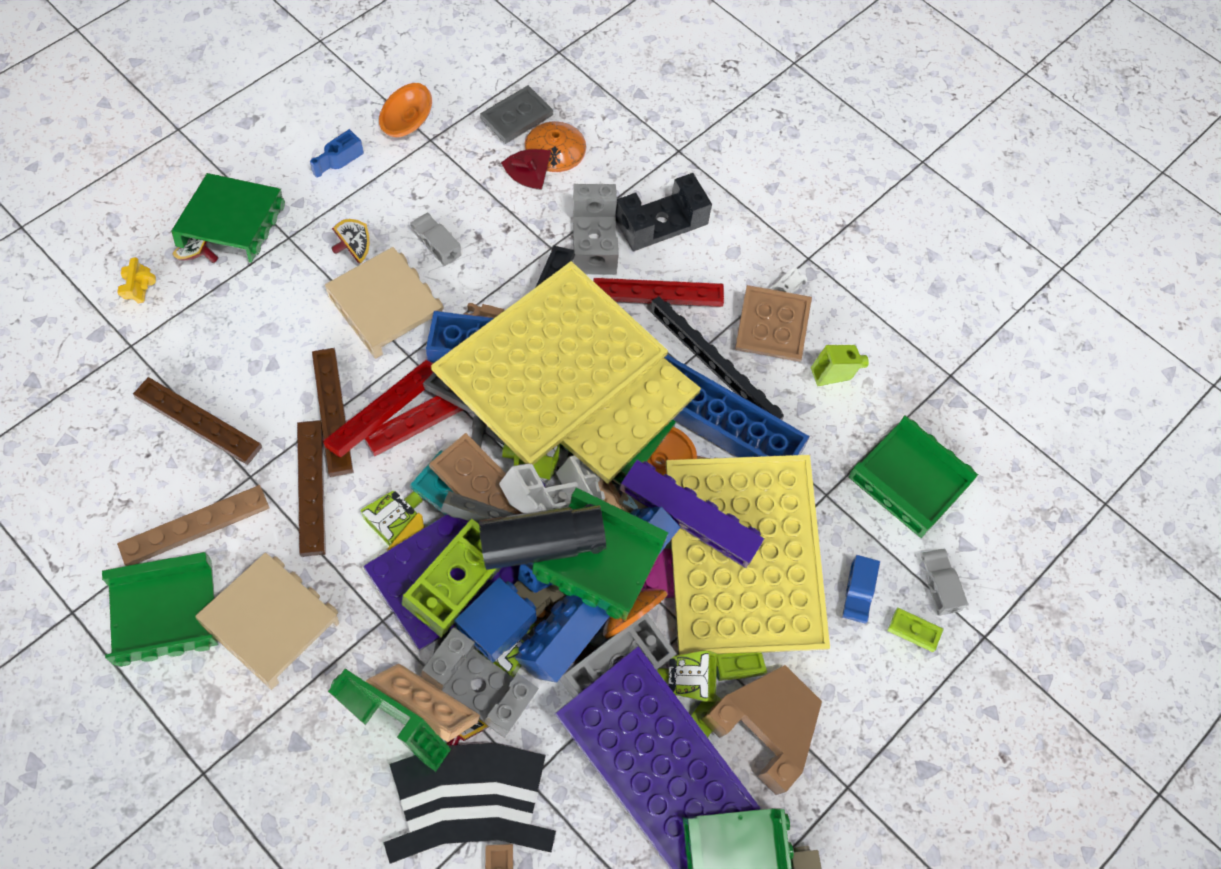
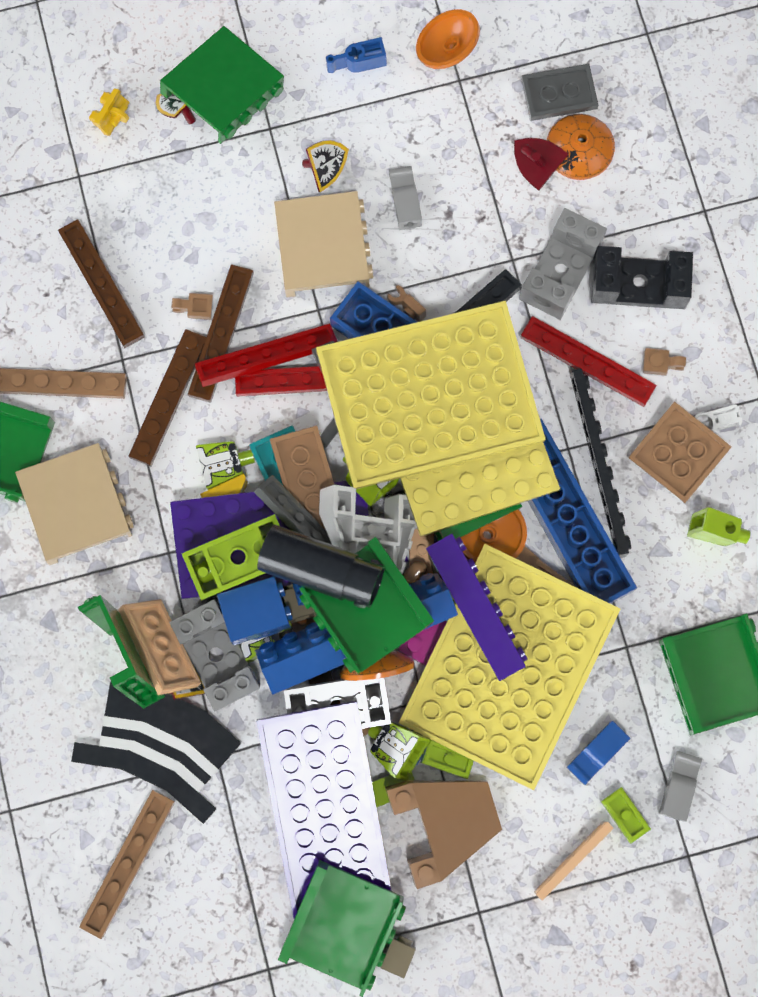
camera: 40 degrees right, 15 degrees up
(298, 398) = (197, 307): none -> medium nougat plate
(714, 269) = (658, 362): none -> medium nougat plate
(898, 692) = (573, 859): none -> light nougat tile

